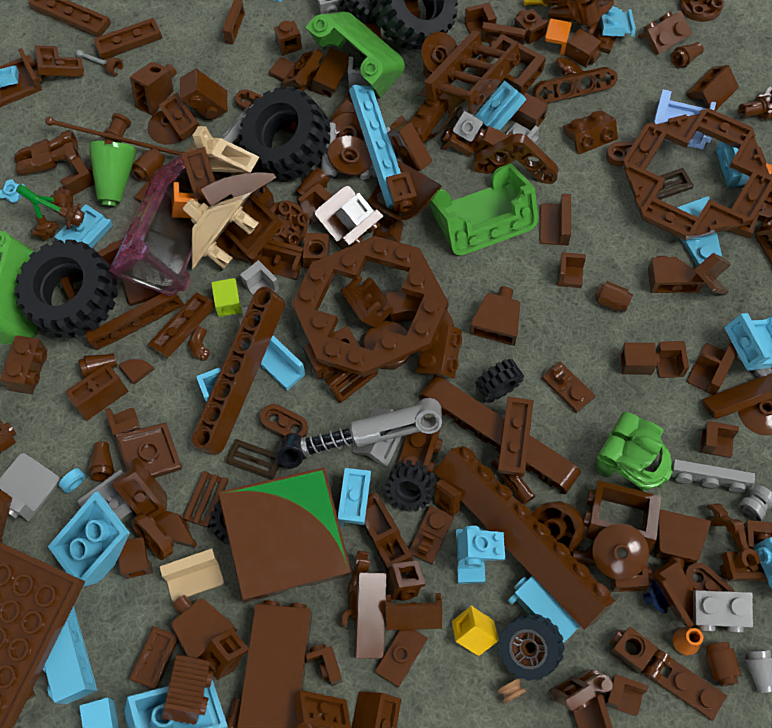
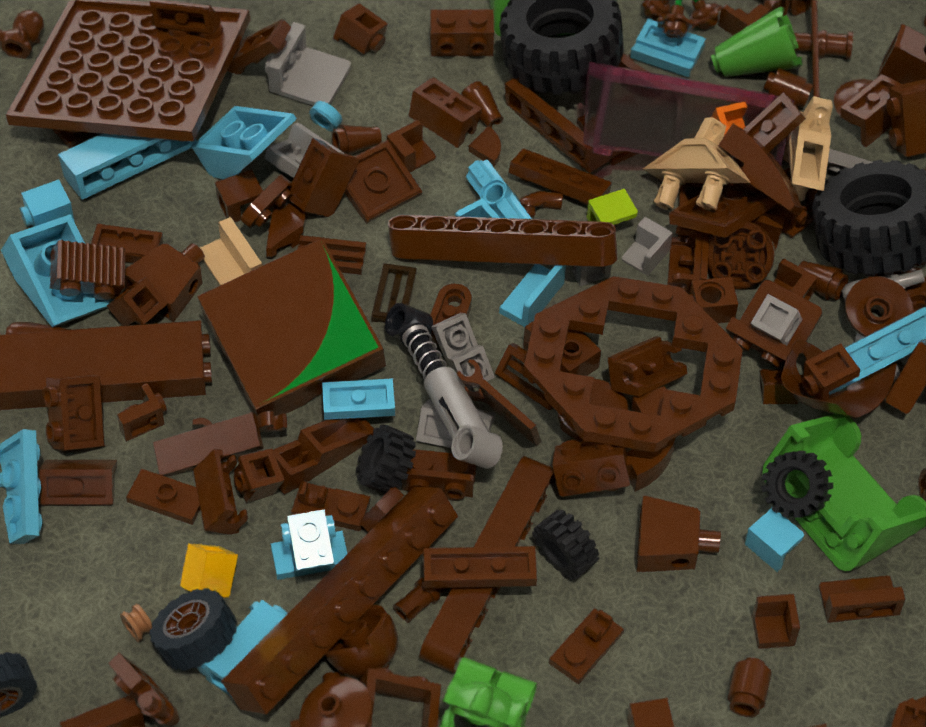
camera: 75 degrees right, 10 degrees down
(180, 371) = (495, 191): none -> medium azure piece
(322, 419) = (459, 345): none -> light grey slope
(371, 404) = (499, 403): none -> reddish brown flag
(497, 229) = (776, 487): none -> black tyre
(510, 257) = (773, 538): none -> medium azure panel

